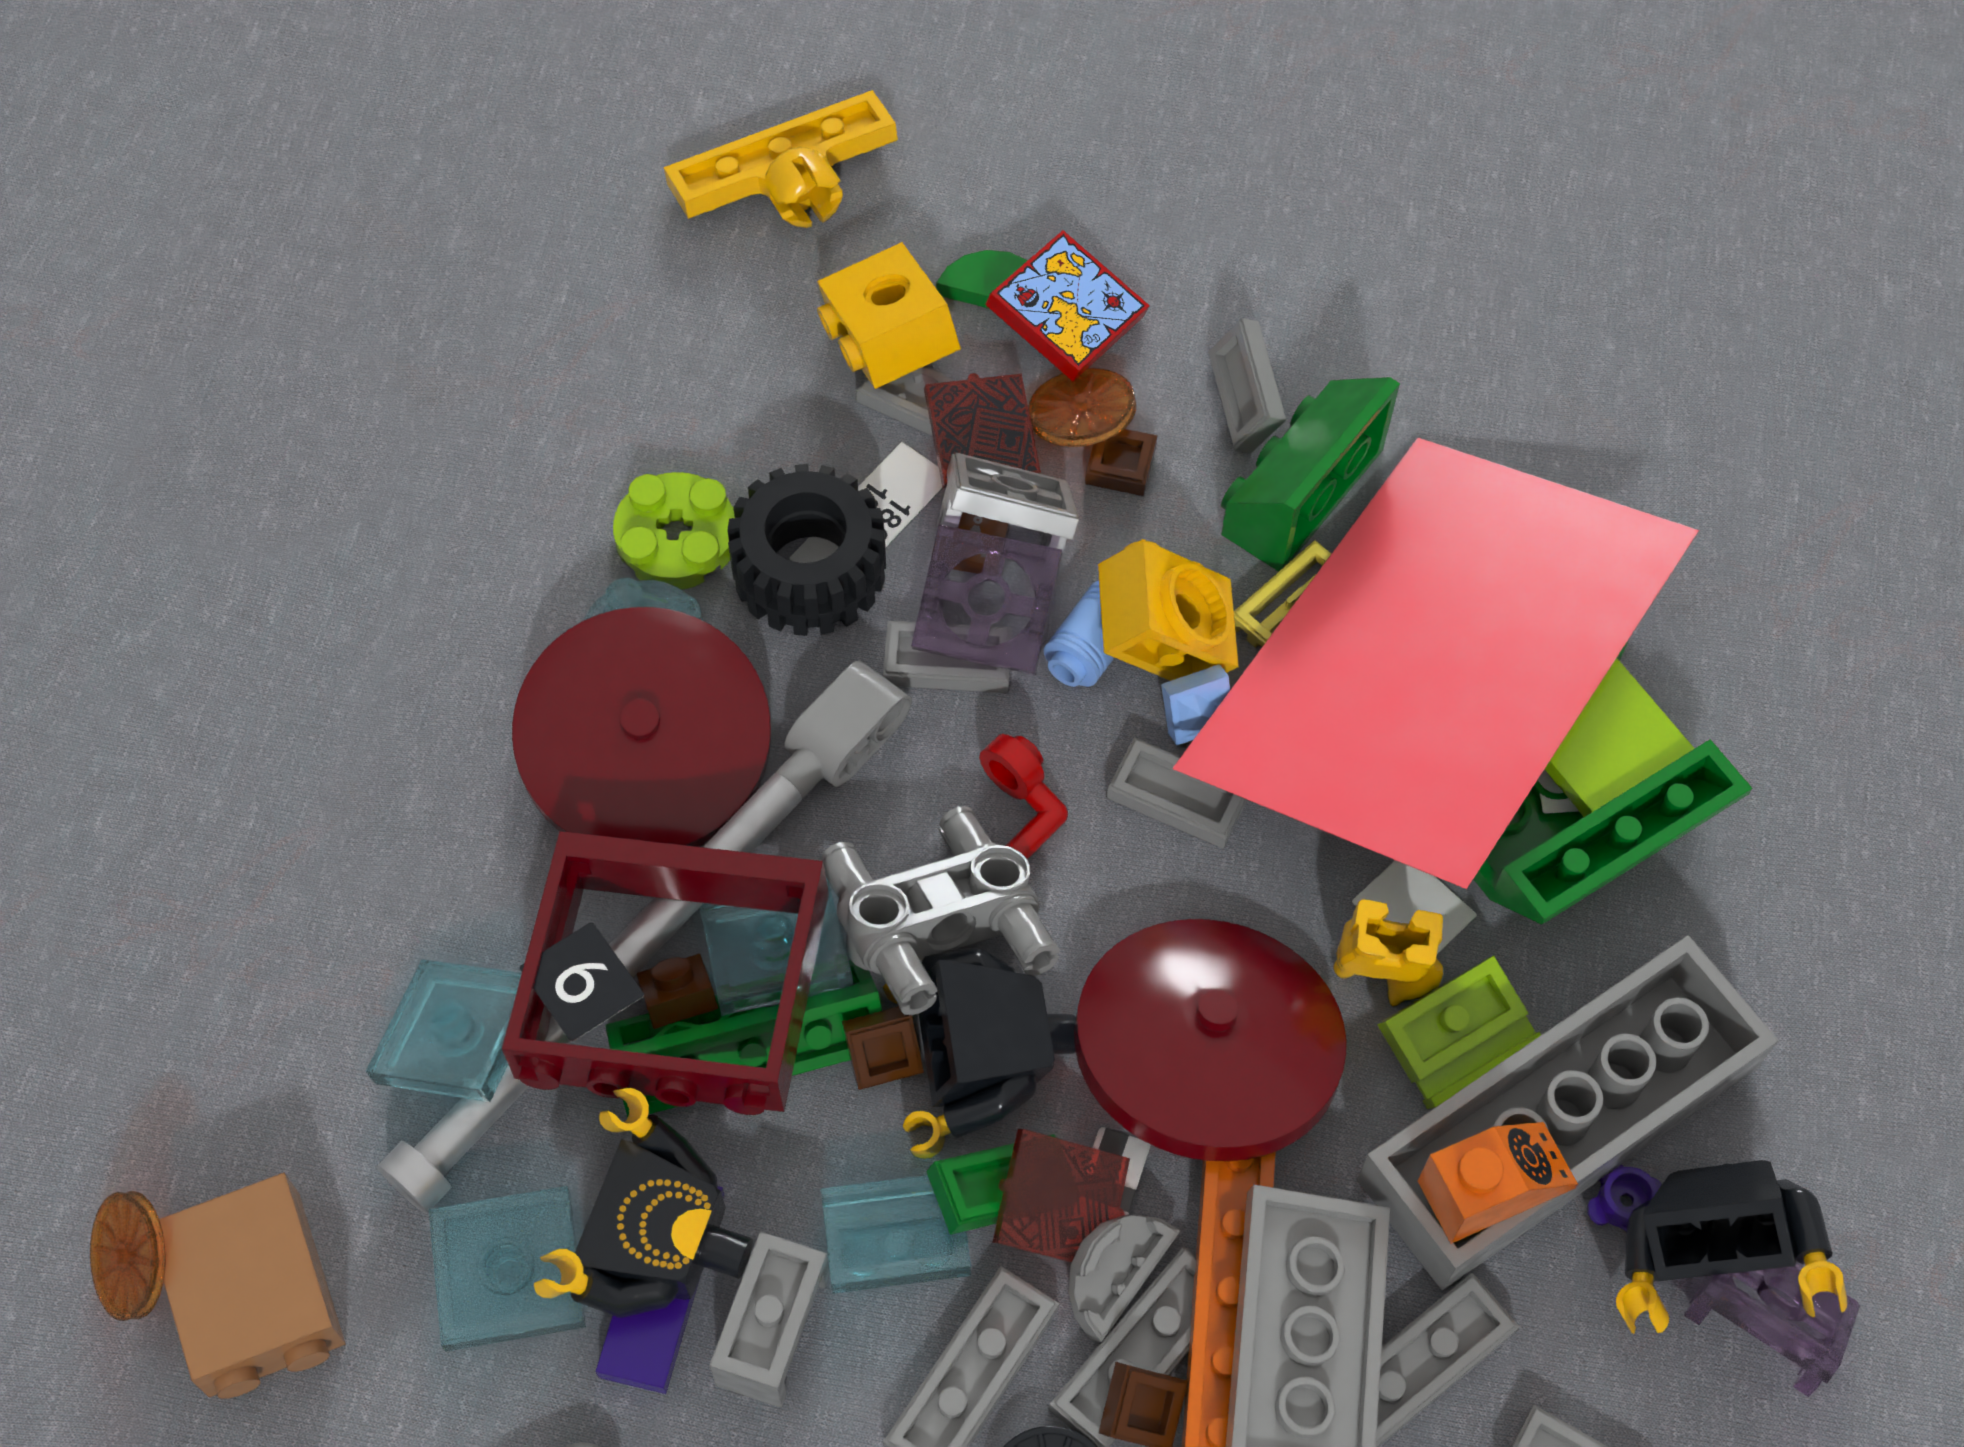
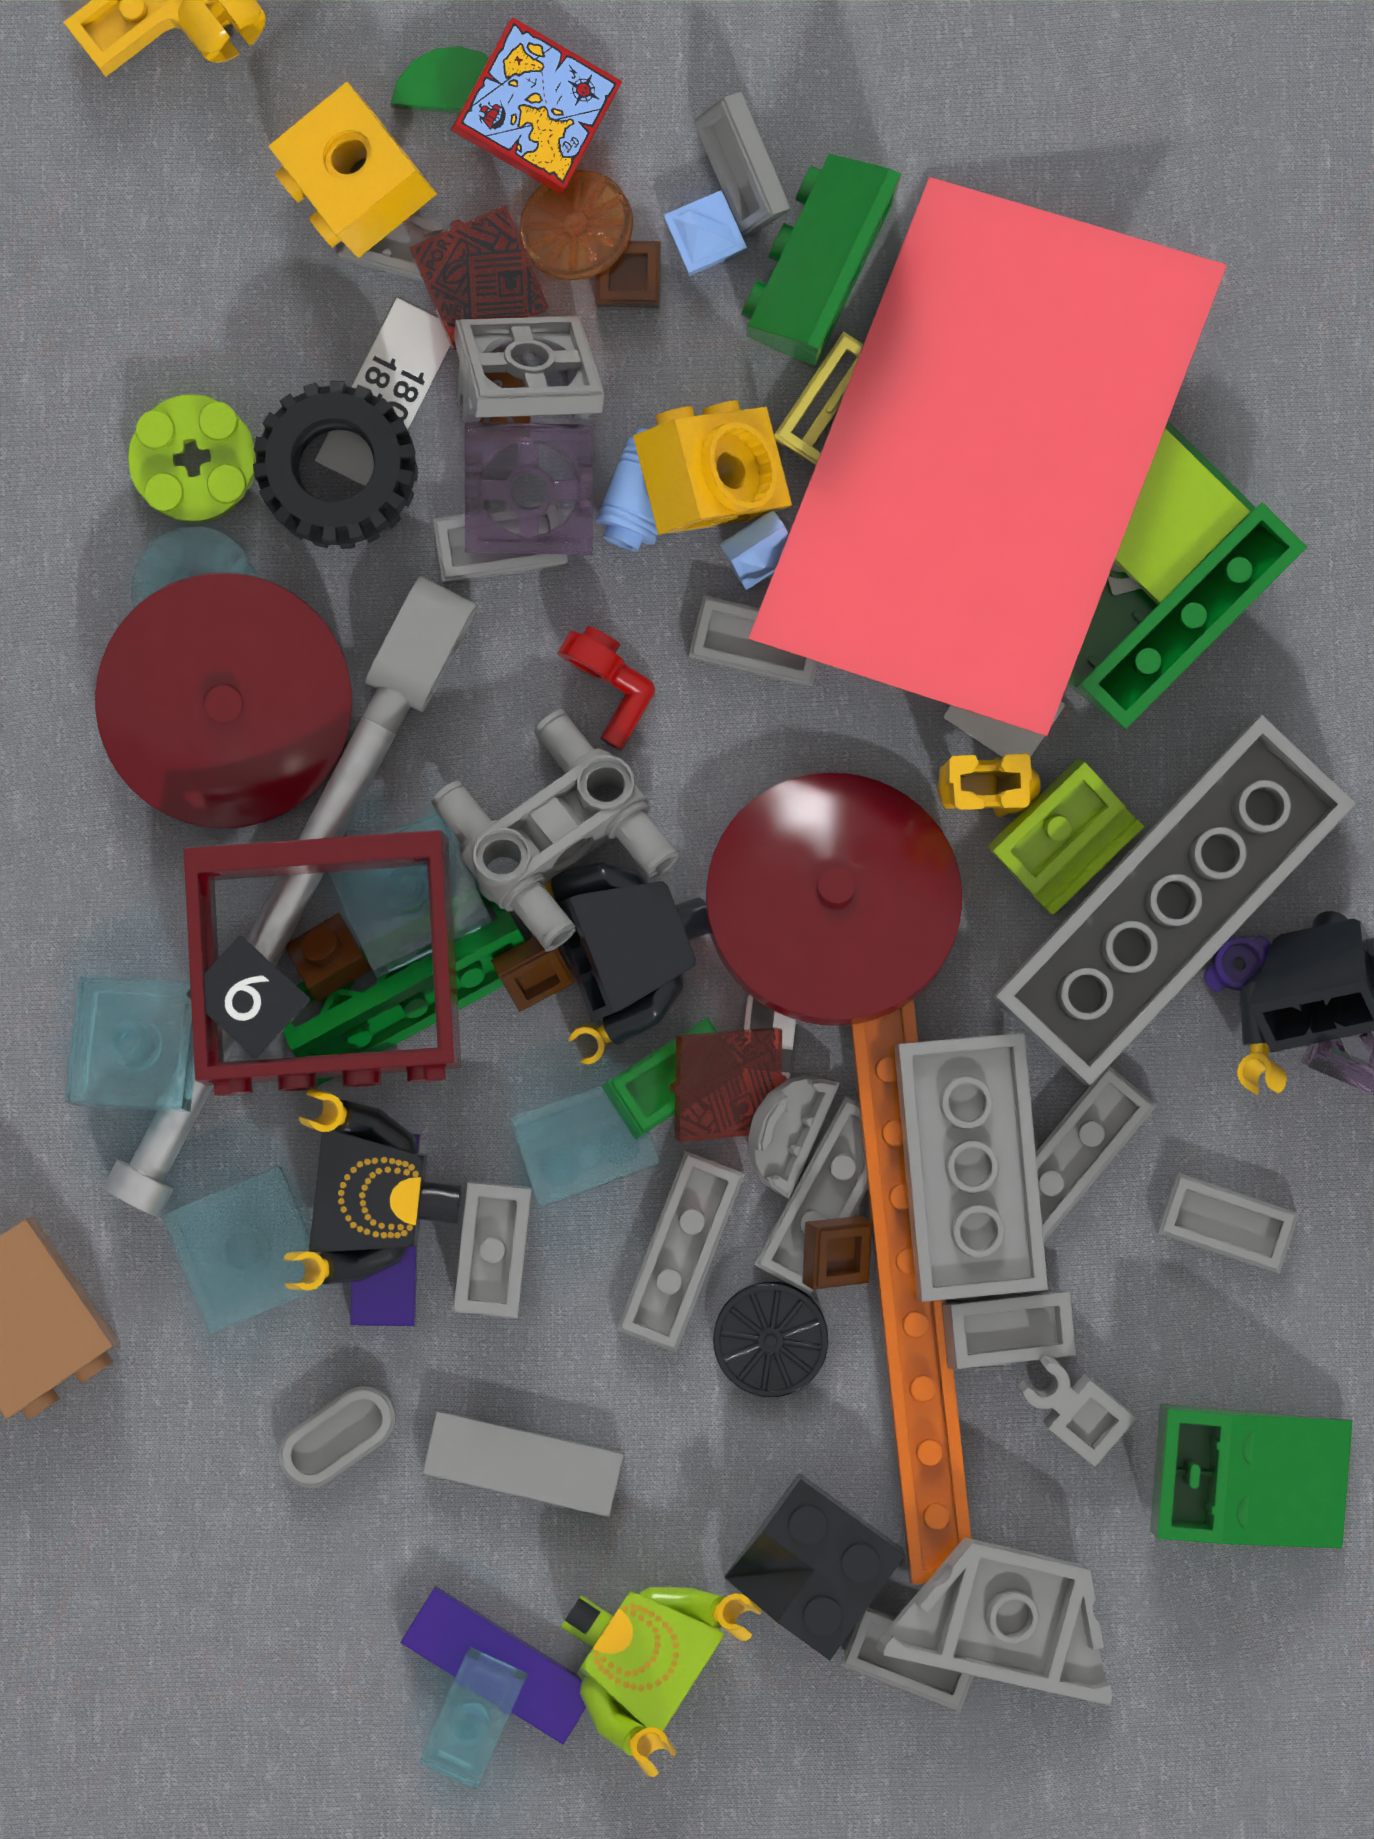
camera: 10 degrees left, 25 degrees up
(1200, 439) = (705, 233): none -> light blue tile
(1493, 1177) = (1116, 1001): orange slope -> none

